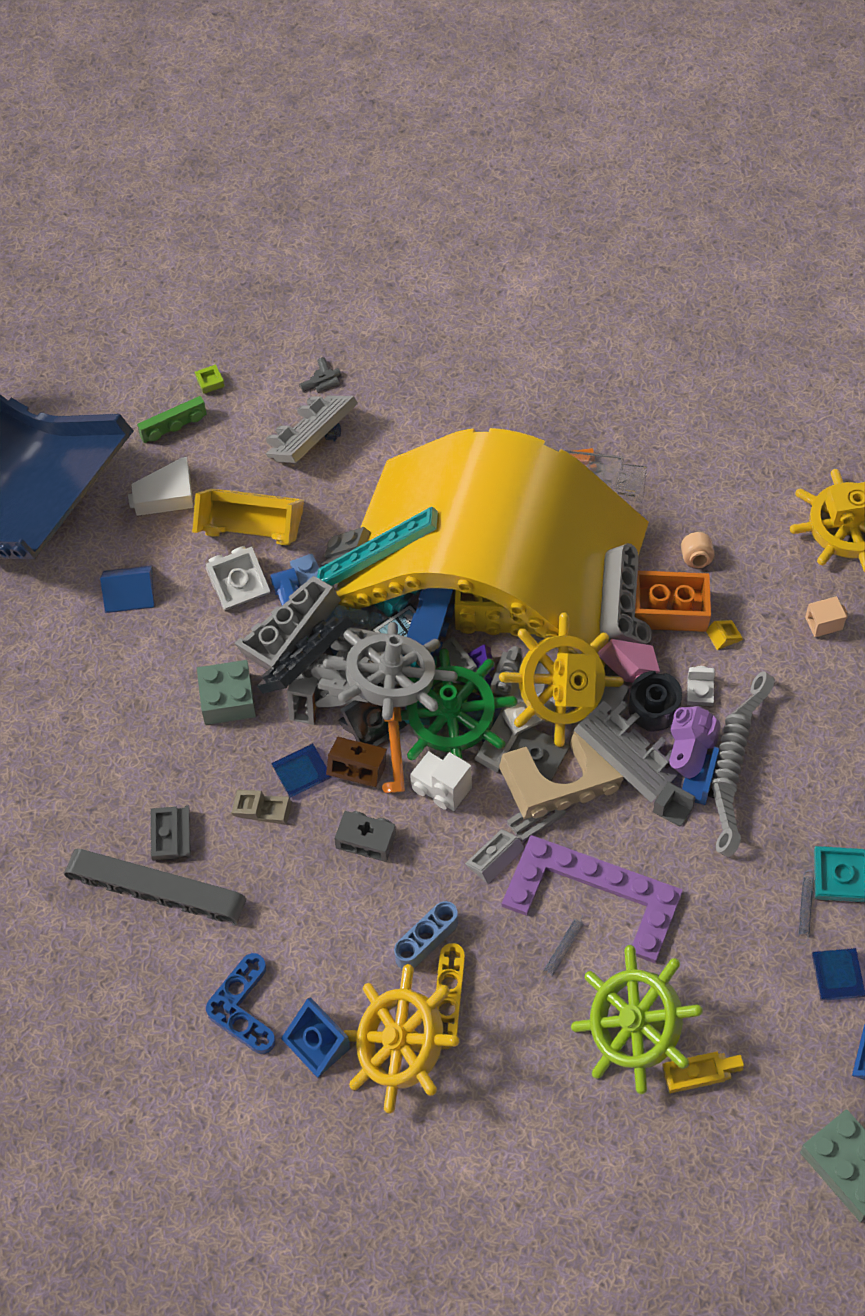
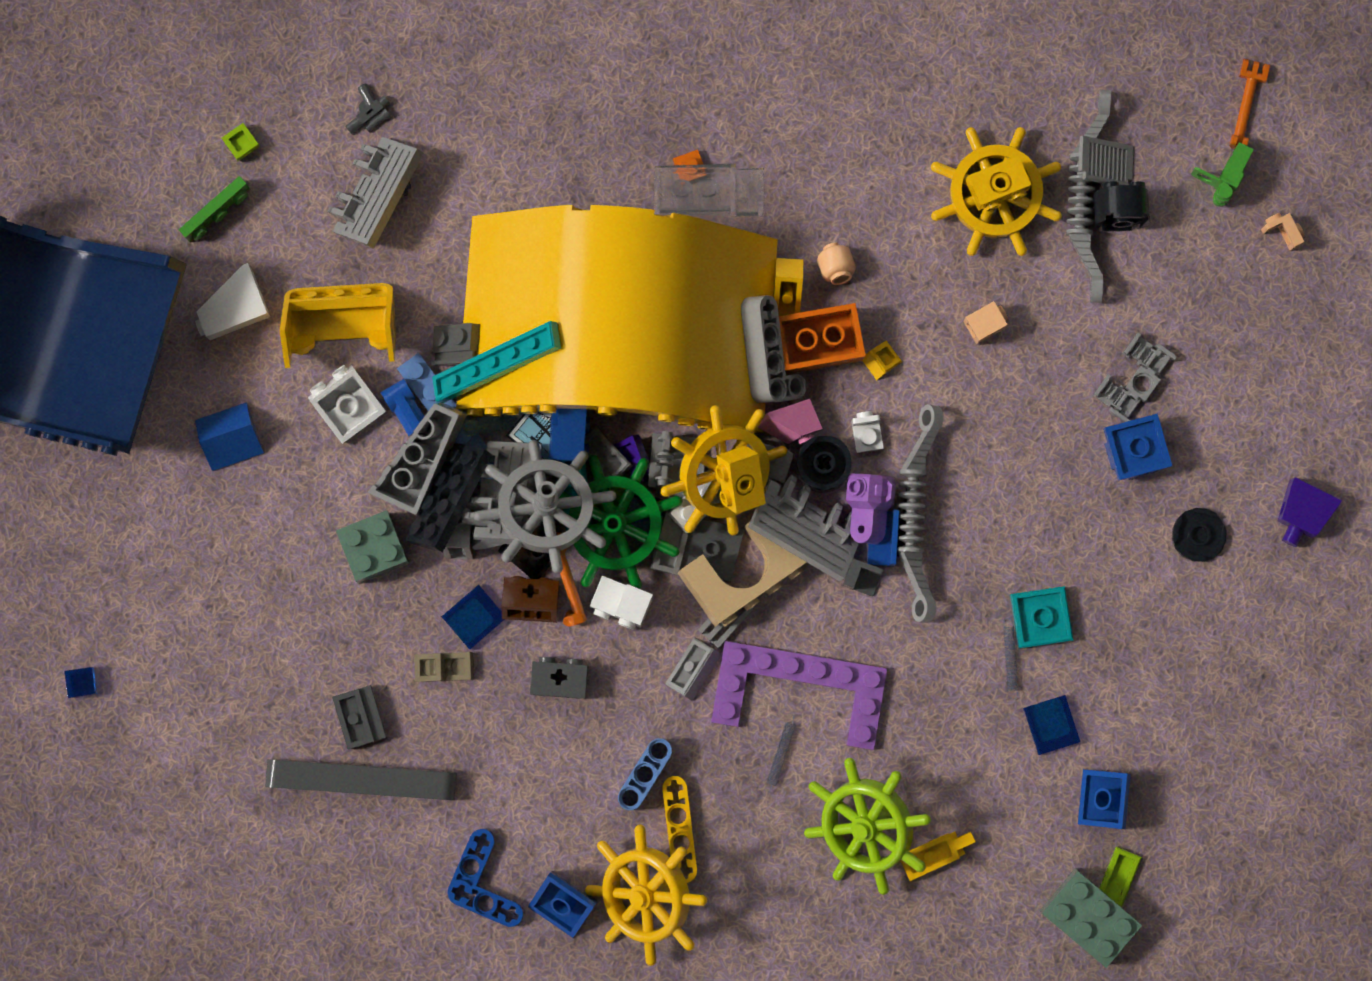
camera: 15 degrees left, 25 degrees up
(652, 553) = (788, 285): none -> yellow slope

